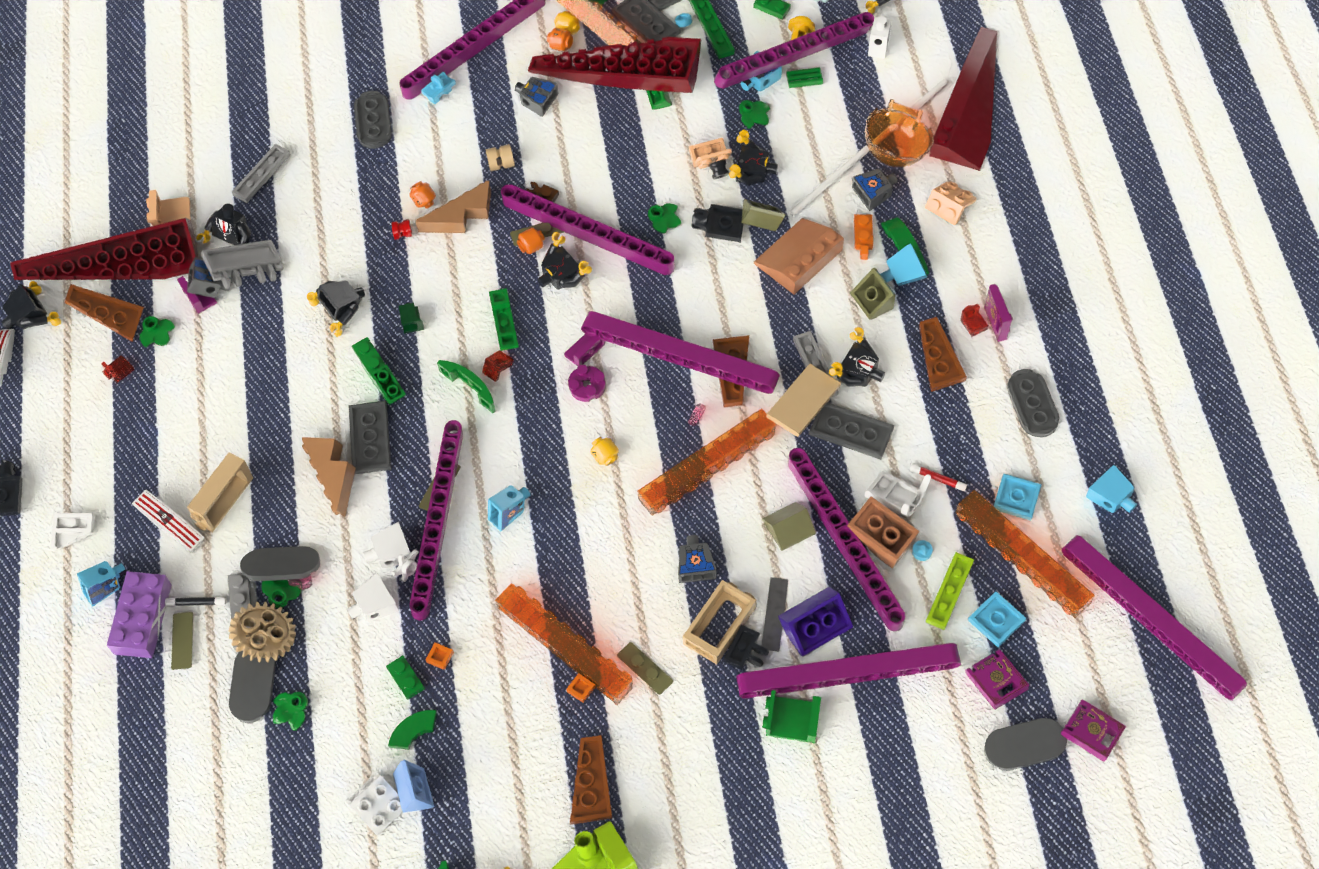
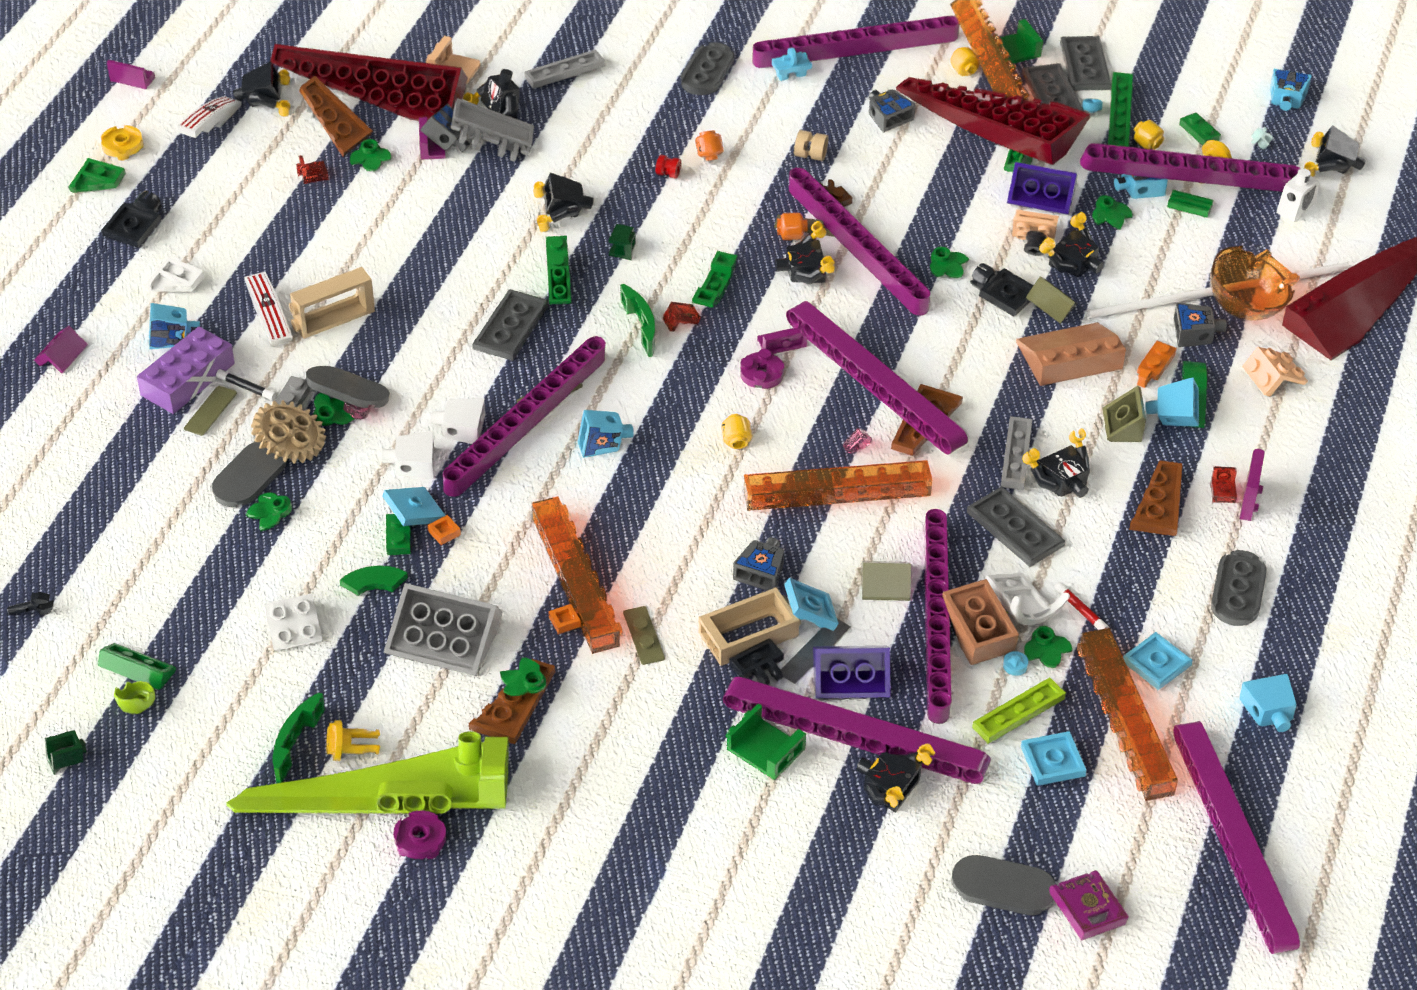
camera: 25 degrees right, 15 degrees down
(21, 646) = (62, 349): none -> magenta panel
(332, 473) = (452, 333): medium nougat slope -> none
(403, 647) = (413, 505): none -> medium azure plate
(407, 565) = (465, 437): white animal -> none
(412, 787) = (338, 622): light blue slope -> none
(454, 214) = (733, 174): medium nougat slope -> none
(496, 749) = (442, 629): none -> light grey slope
(560, 39) = (947, 71): orange head -> none
(584, 761) = (524, 680): none -> green plate
(693, 116) = (1042, 188): none -> dark purple slope
(741, 29) = (1148, 134): none -> yellow head
(755, 580) = (811, 604): none -> medium azure plate
(803, 400) = (978, 471): tan tile -> none
(900, 698) = (893, 776): none -> black torso
(936, 528) = (1046, 647): none -> green plate
(994, 674) = (1014, 804): magenta container -> none

